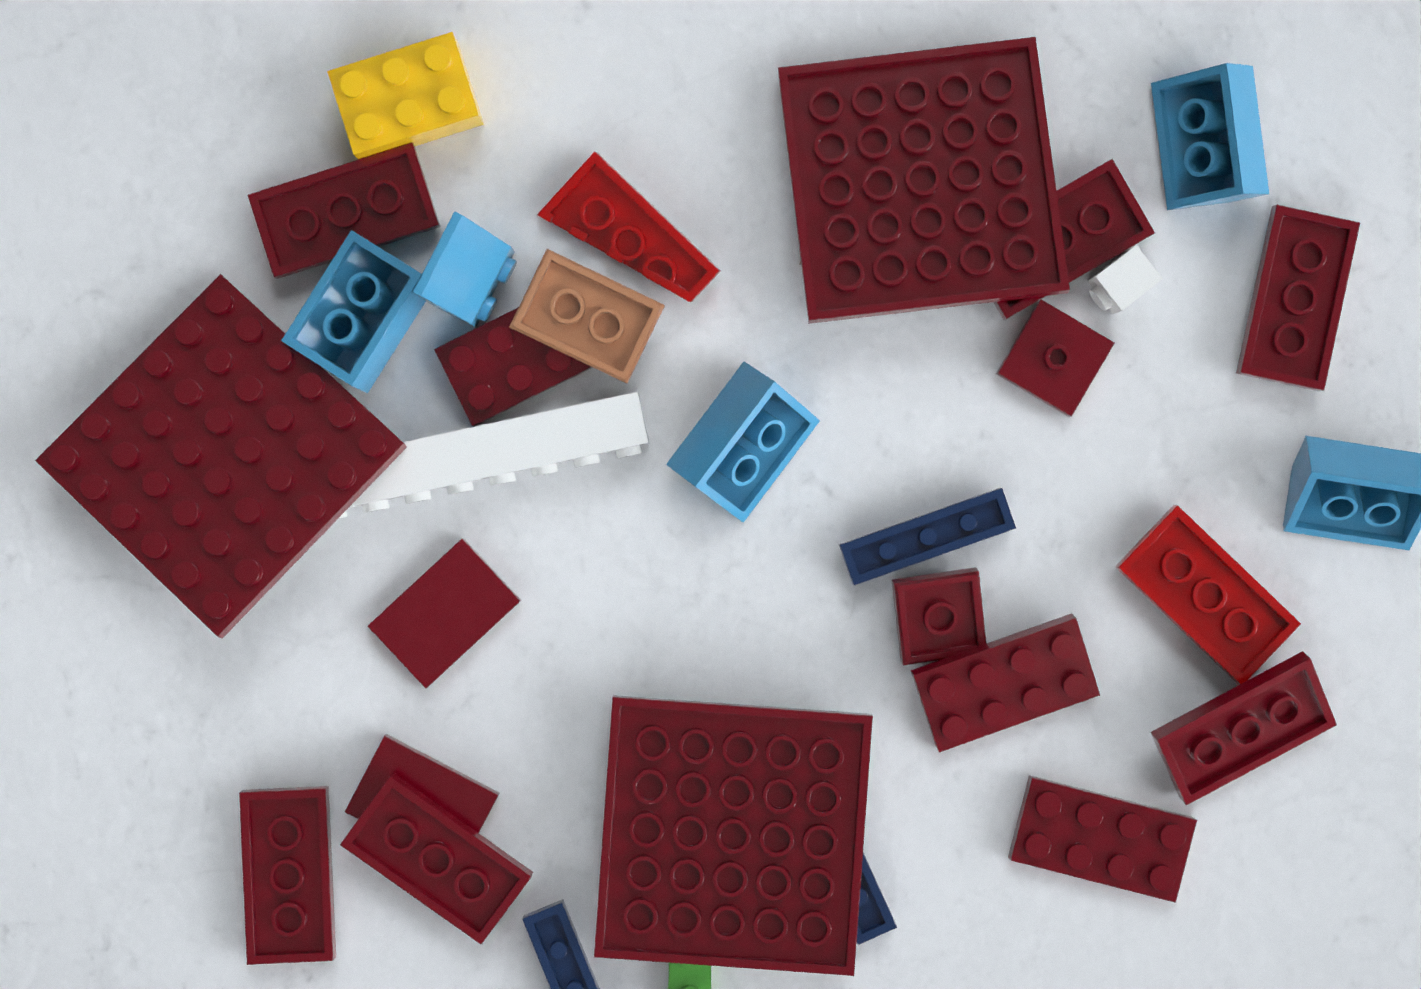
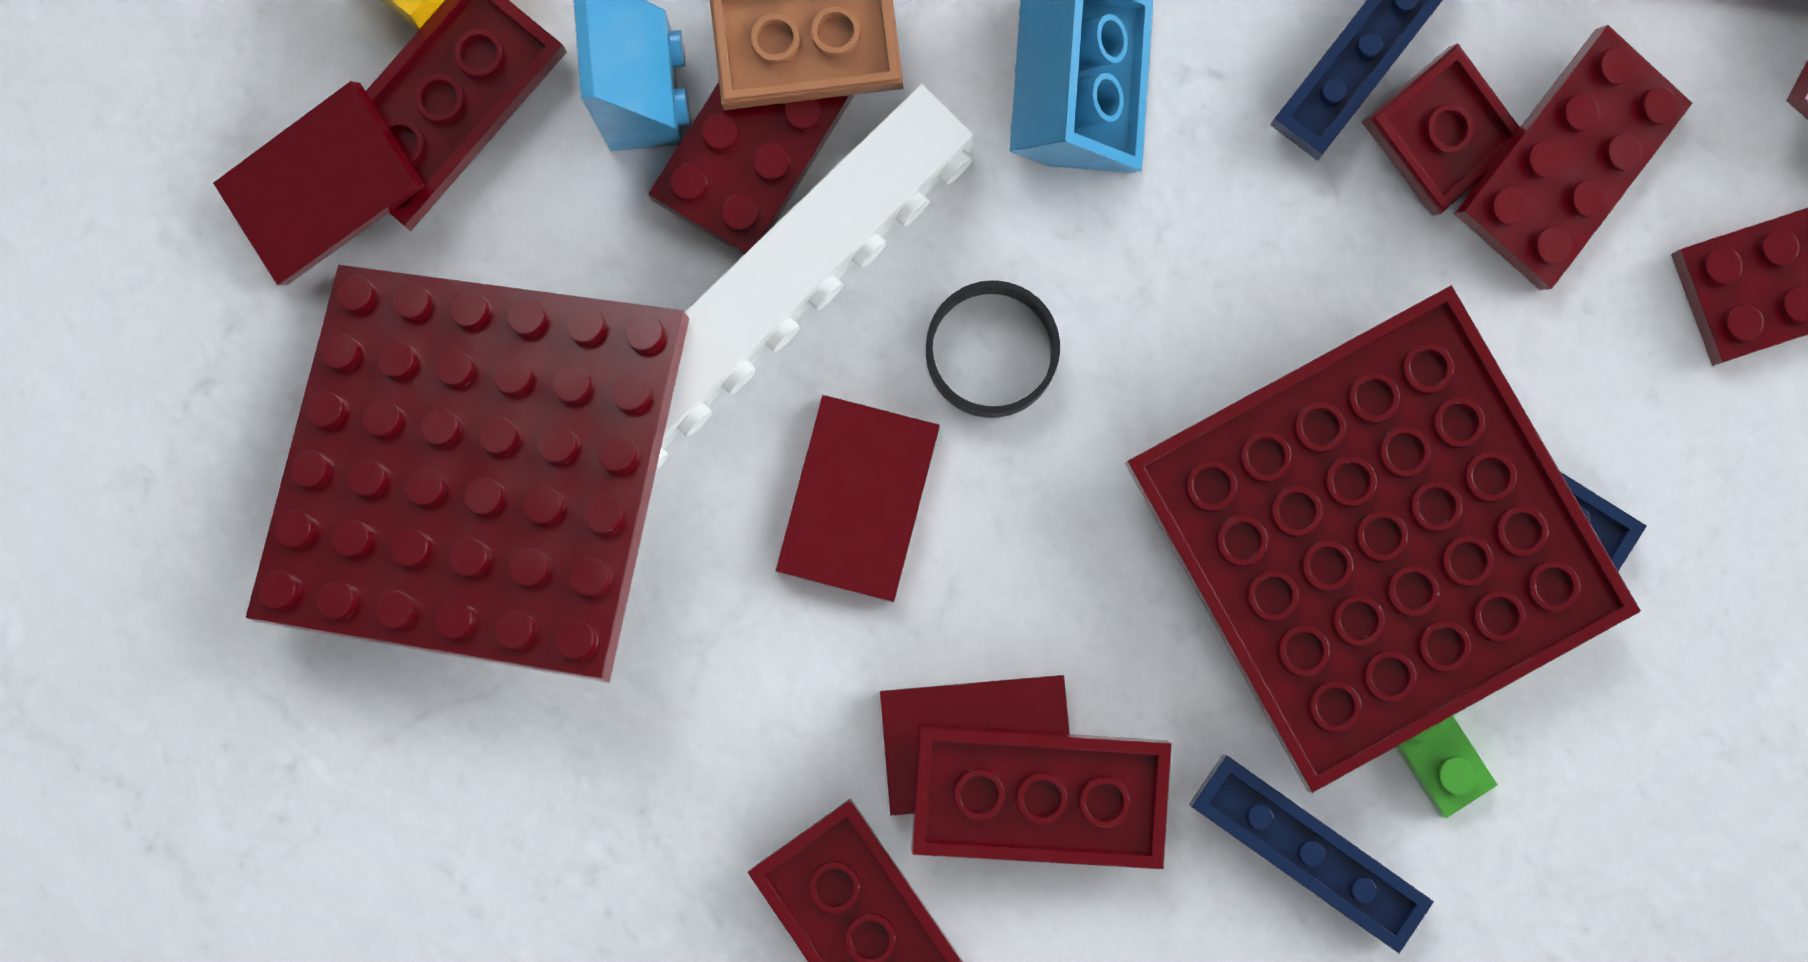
camera: 30 degrees left, 5 degrees down
(237, 219) = (319, 183): none -> dark red tile
(357, 312) = (531, 197): dark azure slope -> none
(537, 583) = (999, 288): none -> black tyre

